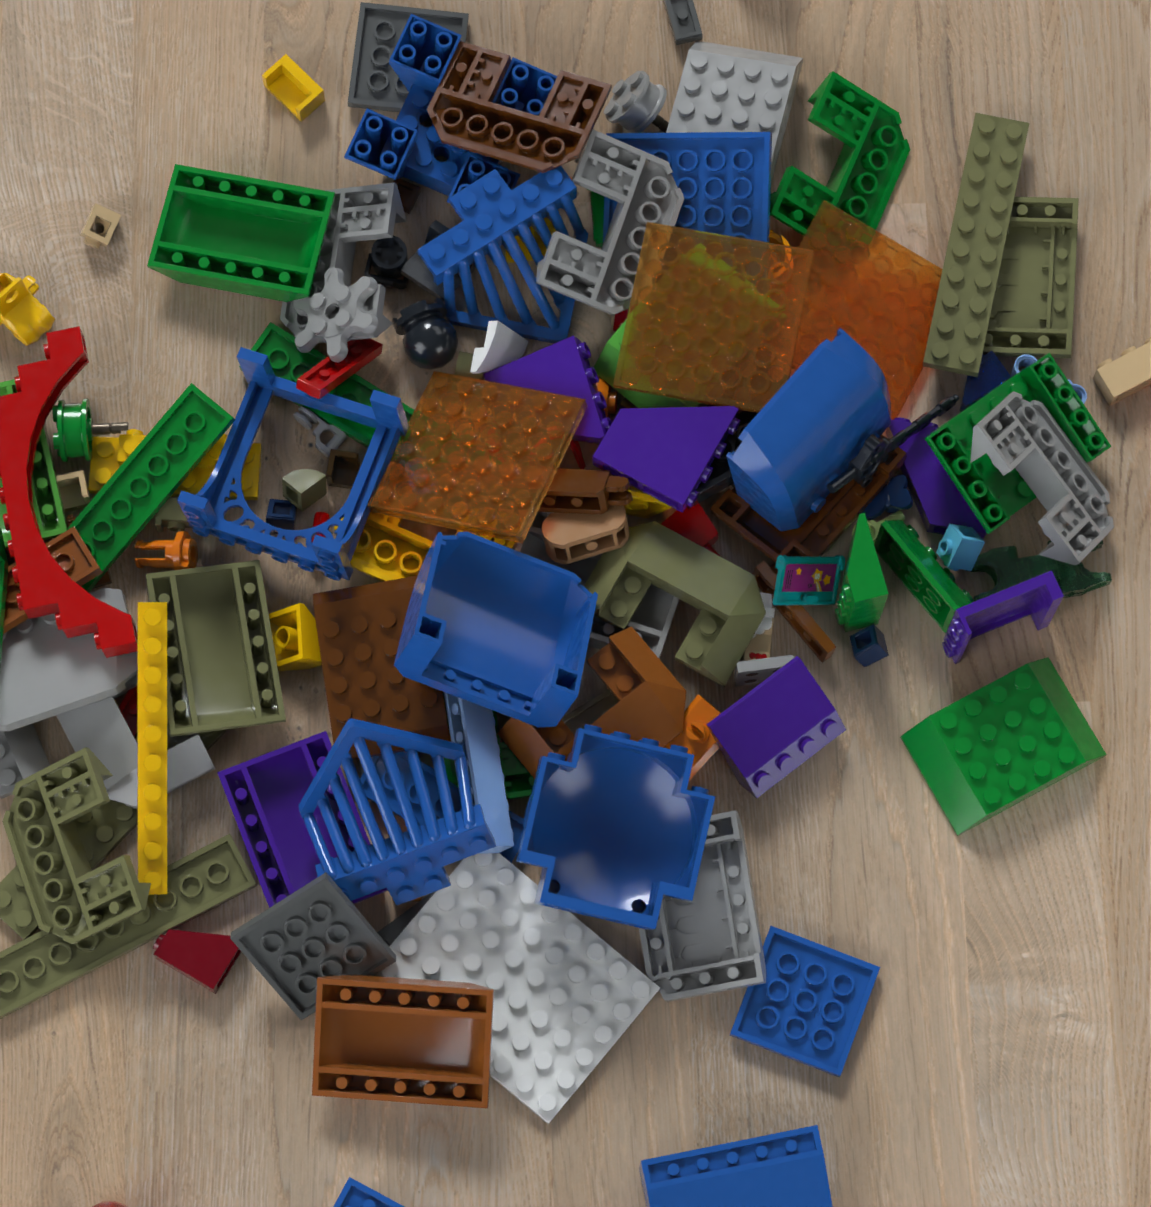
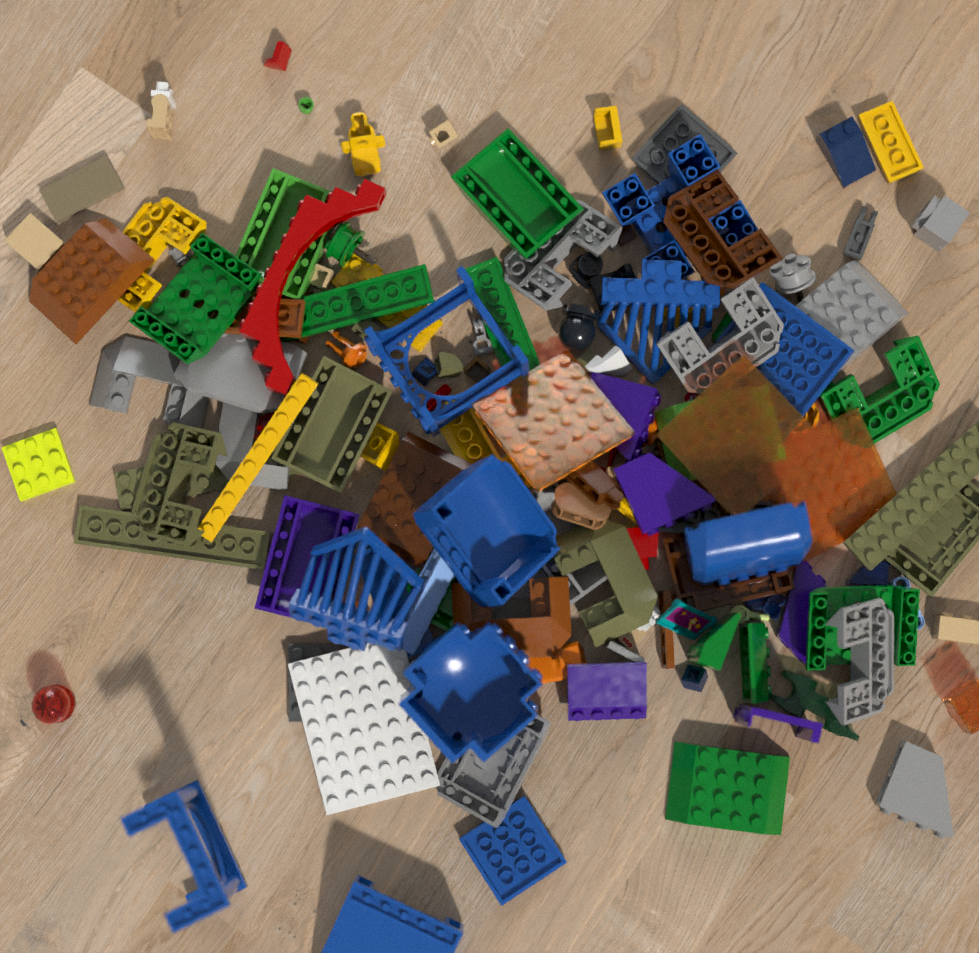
camera: 35 degrees right, 10 degrees up
(198, 956) = (206, 587): dark red slope -> none
(308, 938) = (265, 631): dark grey plate -> none
(330, 374) = (512, 311): red plate -> none
(347, 321) = (537, 289): light grey plate -> none
(403, 1040) = (277, 717): dark orange slope -> none
(876, 450) = (765, 580): black bar -> none
(960, 547) = (785, 663): medium azure brick -> none

